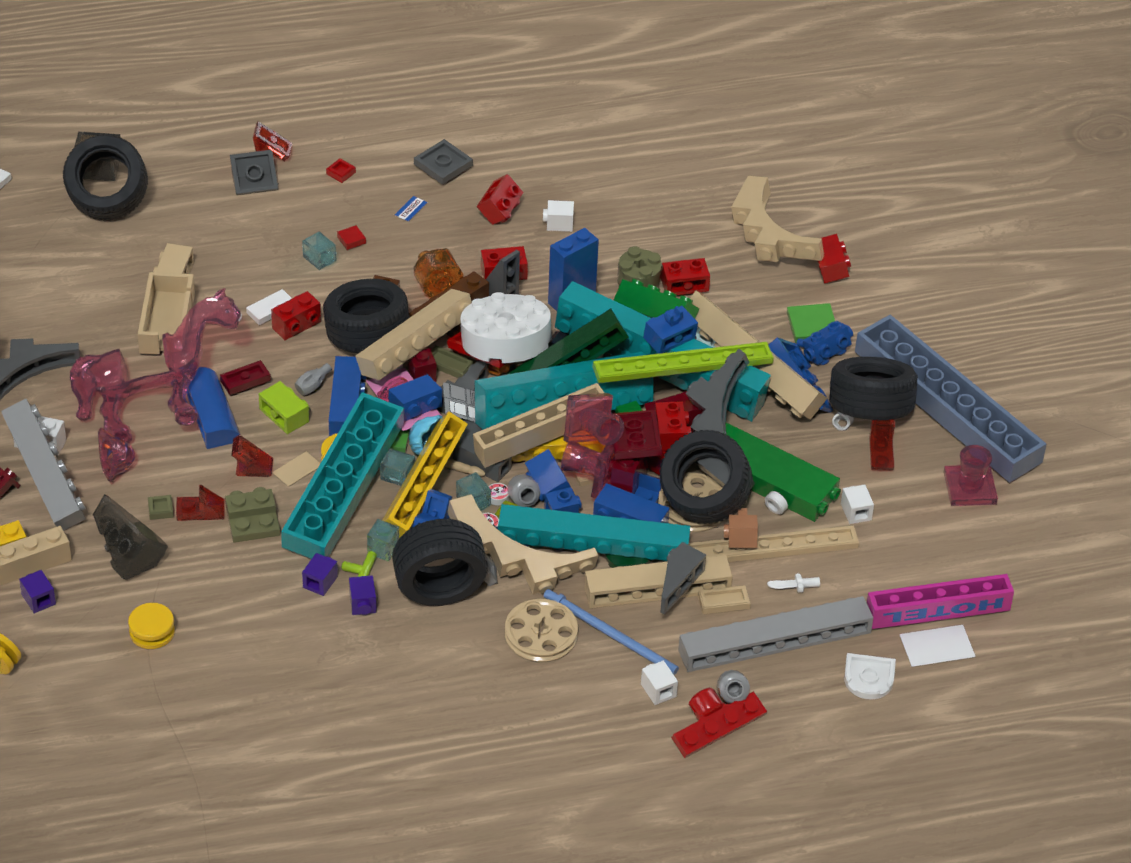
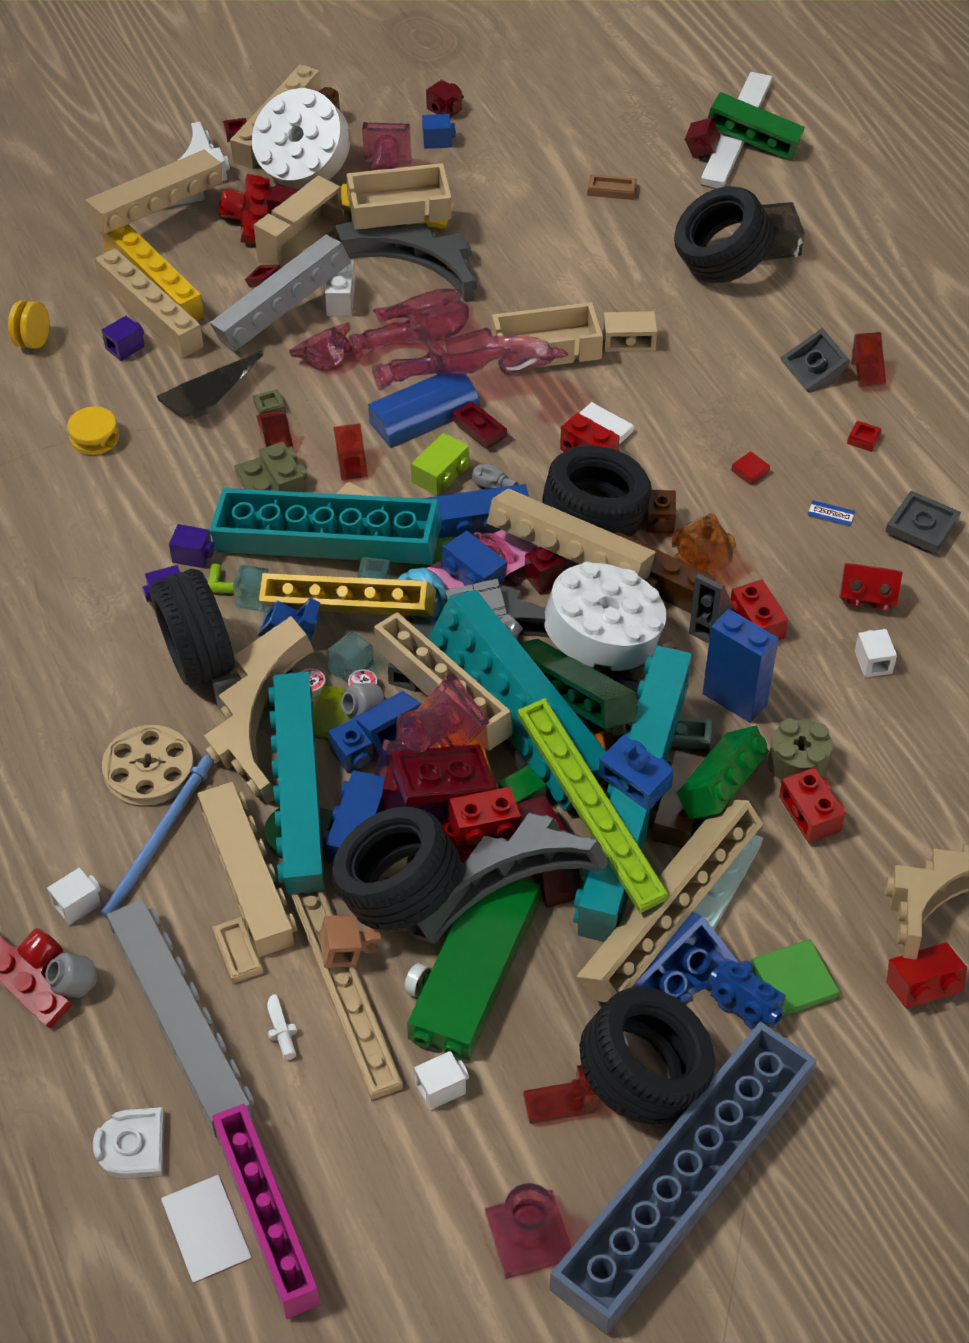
camera: 80 degrees right, 5 degrees up
(319, 250) = (708, 441): clear light blue brick -> none
(682, 570) = (229, 873): dark grey slope -> none

